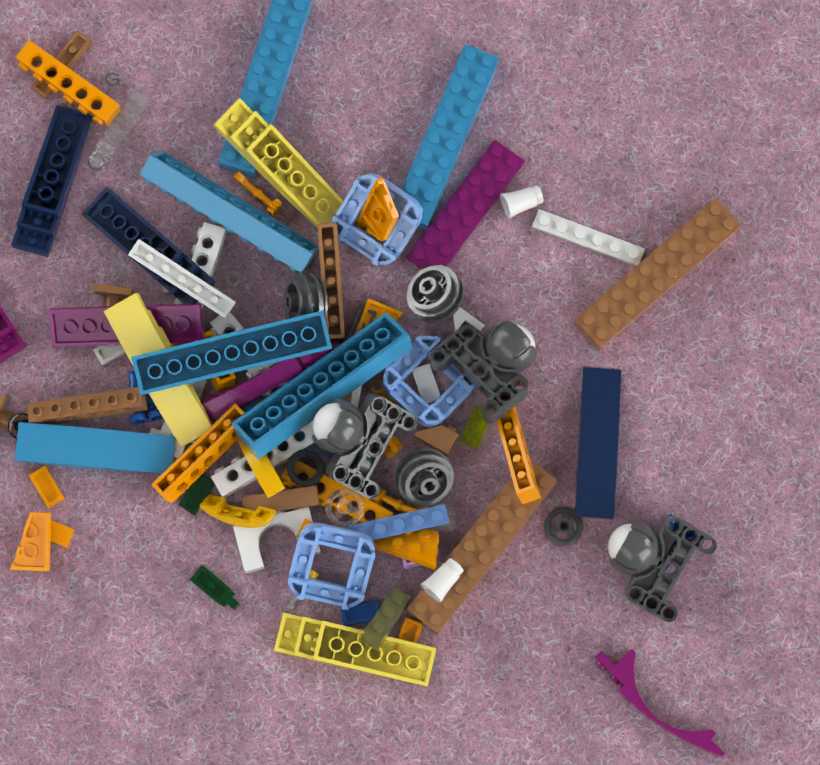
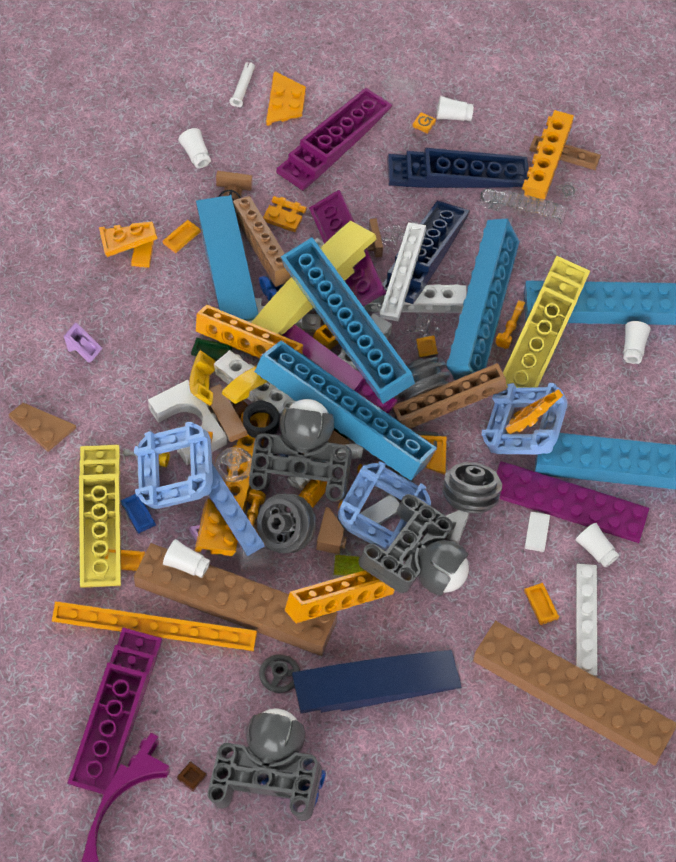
camera: 75 degrees right, 20 degrees down
(55, 378) = (283, 218): none -> light orange plate
(155, 619) = (82, 342): none -> lavender slope
(214, 587) = (126, 385): dark green hinge -> none
(236, 683) = (41, 426): none -> medium nougat wing
(258, 283) = (426, 346): none -> light orange plate
(315, 83) = (635, 341): none -> white plant
(385, 618) = (135, 526): olive brick -> none
(487, 628) = (154, 625): none -> light orange plate
(488, 249) = (537, 531): none -> white tile
(560, 682) = (114, 710): none -> magenta slope
(561, 271) = (541, 603): none -> light orange tile
(639, 631) = (191, 776): none -> reddish brown tile

